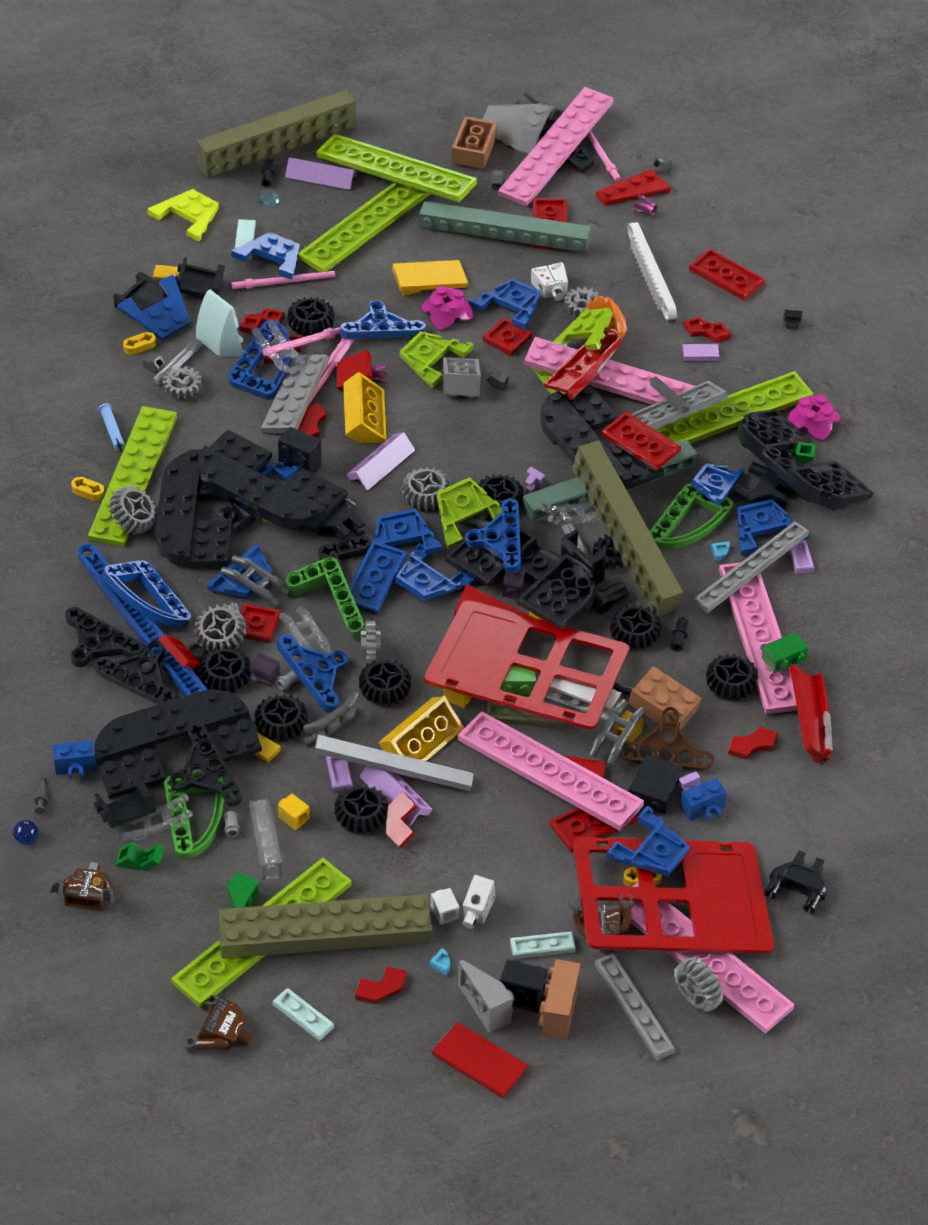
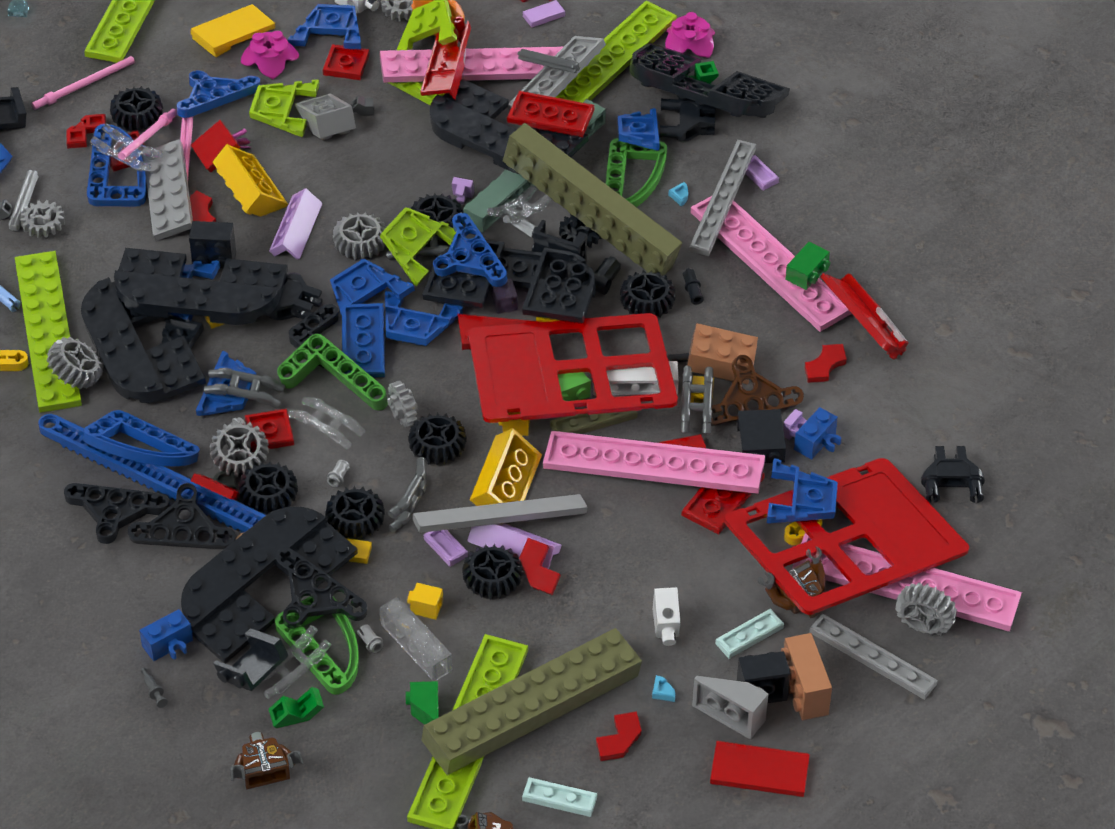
camera: 25 degrees left, 0 degrees up
(25, 832) = (162, 731): clear blue piece -> none
(218, 326) = (50, 148): light aqua wedge -> none
(245, 232) = (18, 56): light aqua tile -> none
(264, 670) = (308, 472): clear purple brick -> none
(272, 248) = (57, 54): wing -> none
(310, 662) = (351, 447): blue beam -> none
(444, 906) = (635, 632): white brick -> none
(732, 676) = (768, 307): black gear -> none
(758, 520) = (699, 152): blue wing -> none

